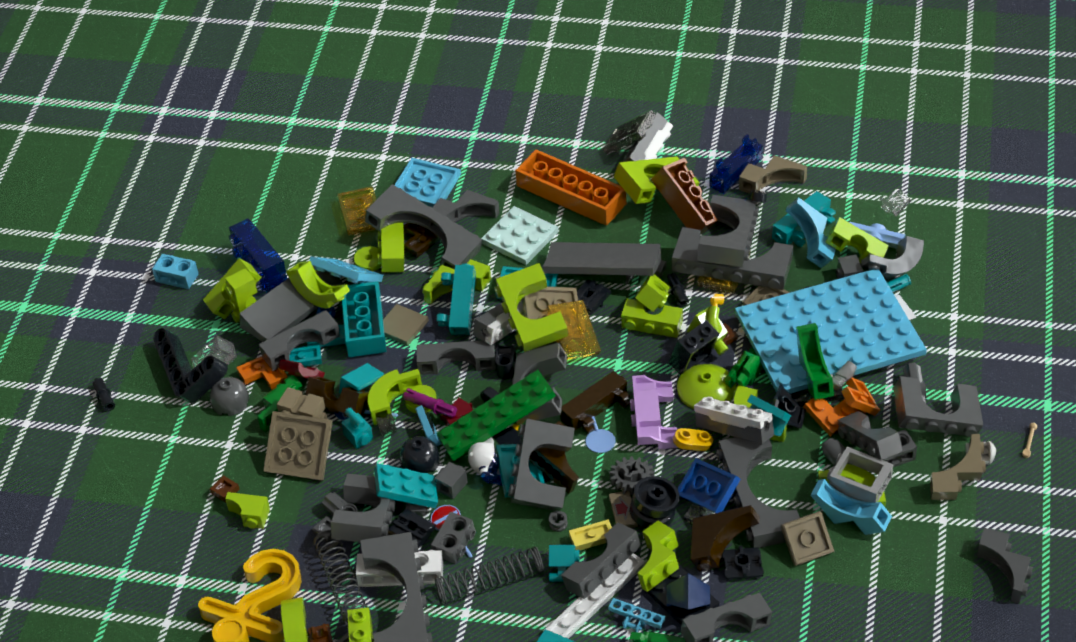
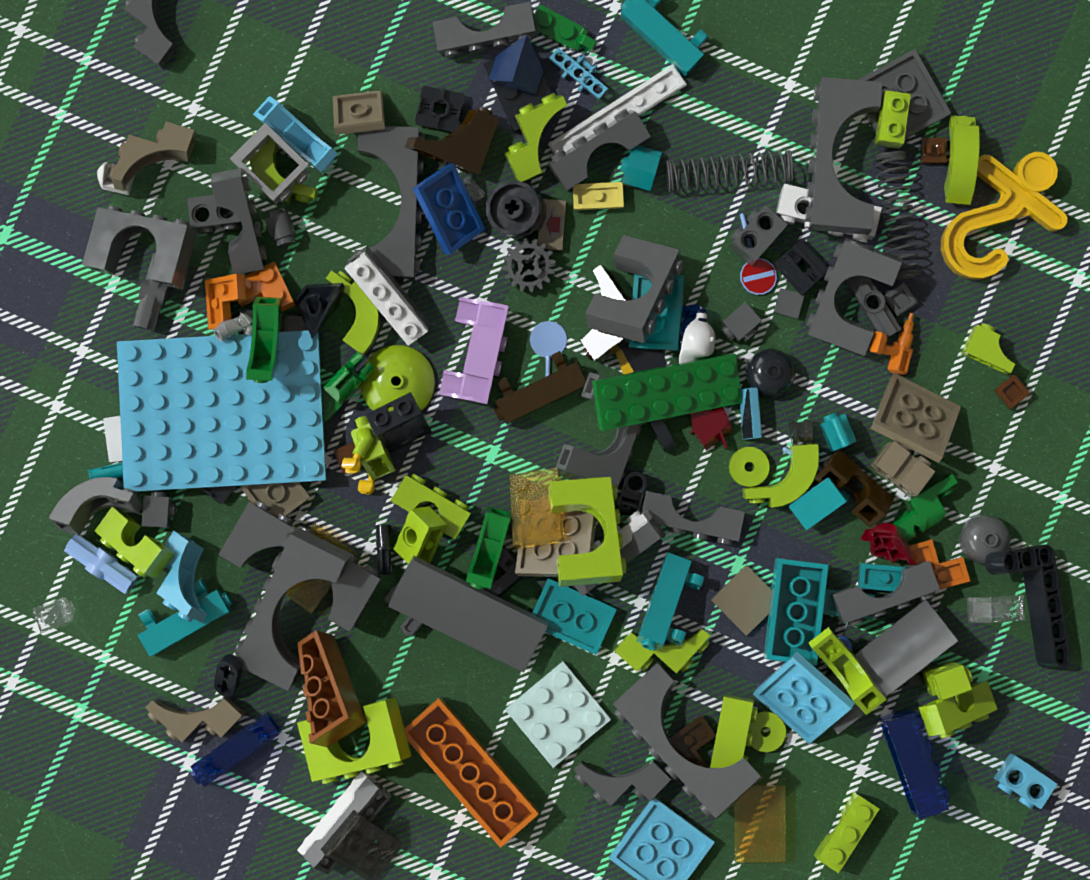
camera: 170 degrees left, 40 degrees up
(292, 225) = (842, 841): none -> lime arch
(319, 489) = (899, 351): none -> orange piece
(405, 485) = (799, 317): teal plate -> none
(433, 404) = (741, 442): magenta axle -> none
(562, 525) = (628, 223): dark grey bush -> none
(600, 294) = (489, 548): none -> green arch
(692, 439) = (439, 297): yellow plate -> none
(779, 417) = (344, 285): teal panel -> none
(1026, 452) = (61, 170): tan hinge -> none

